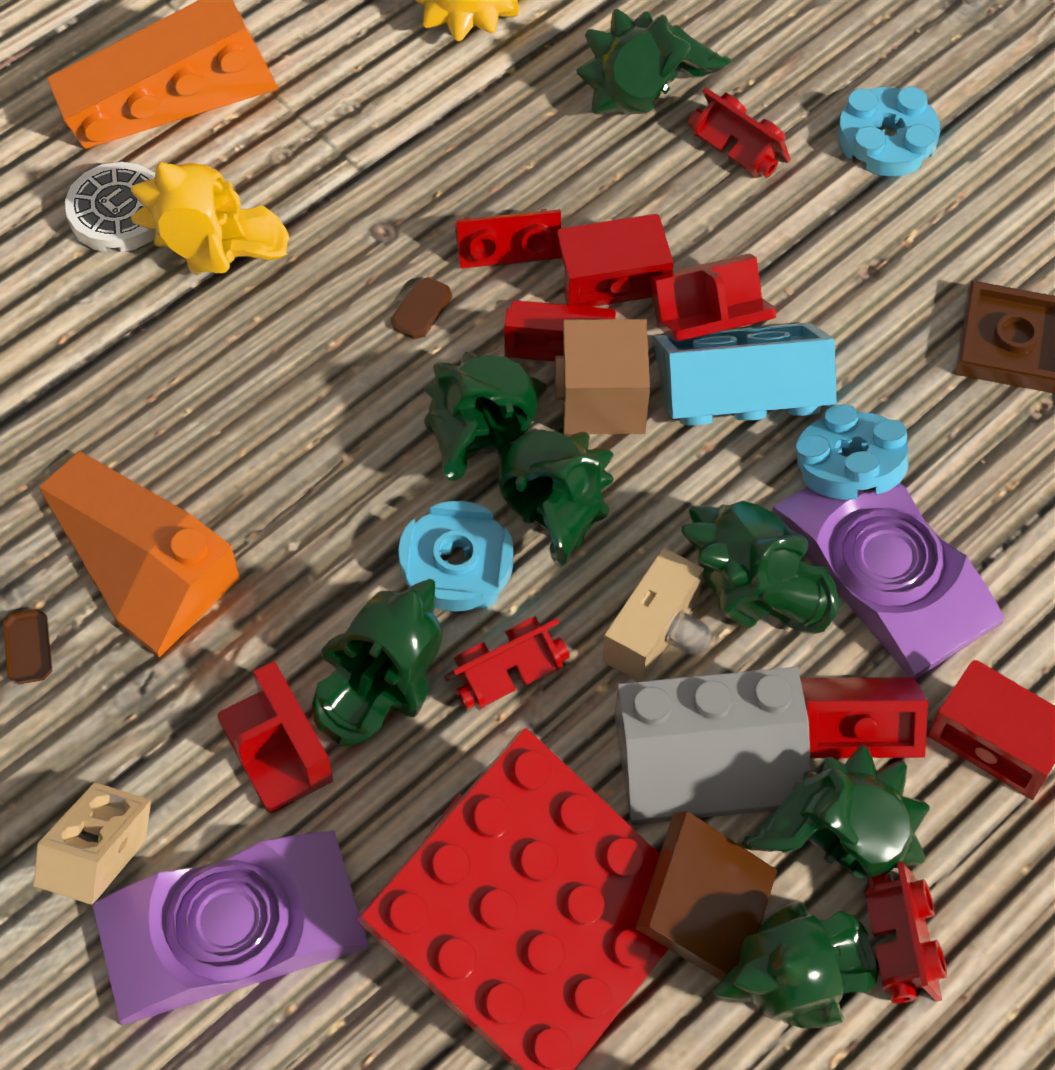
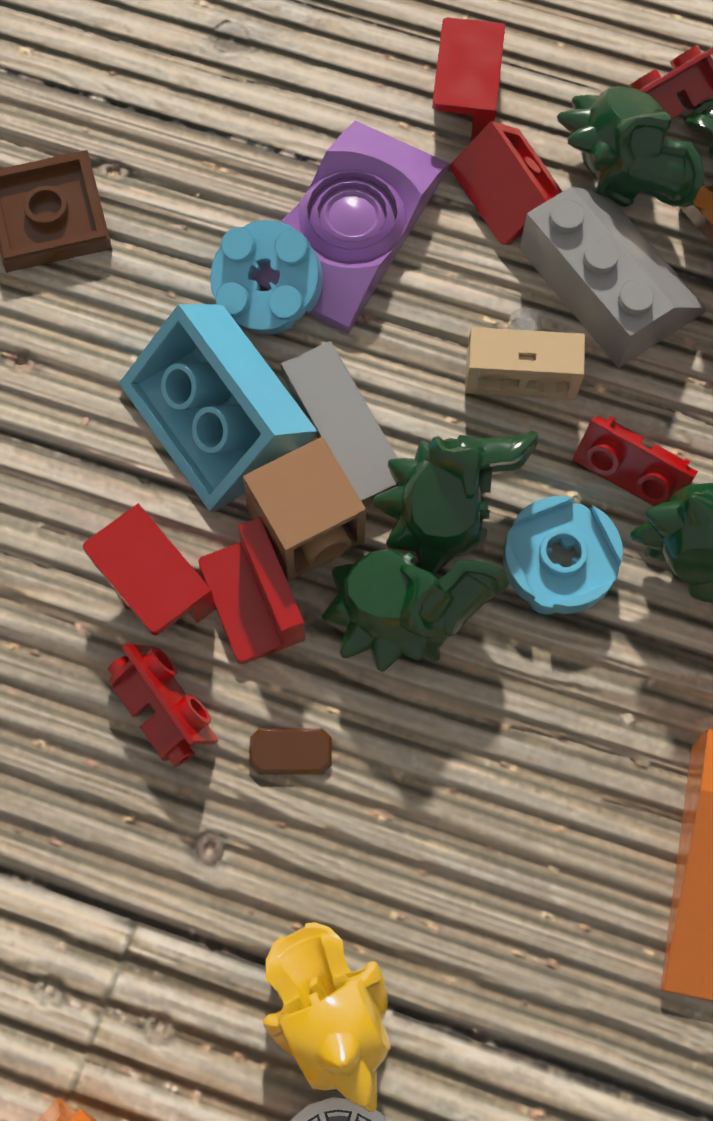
camera: 120 degrees left, 10 degrees up
(683, 459) = (342, 418): none -> light grey tile
(710, 298) = (157, 461): red panel -> none
(759, 569) = (431, 298): dark green head -> none

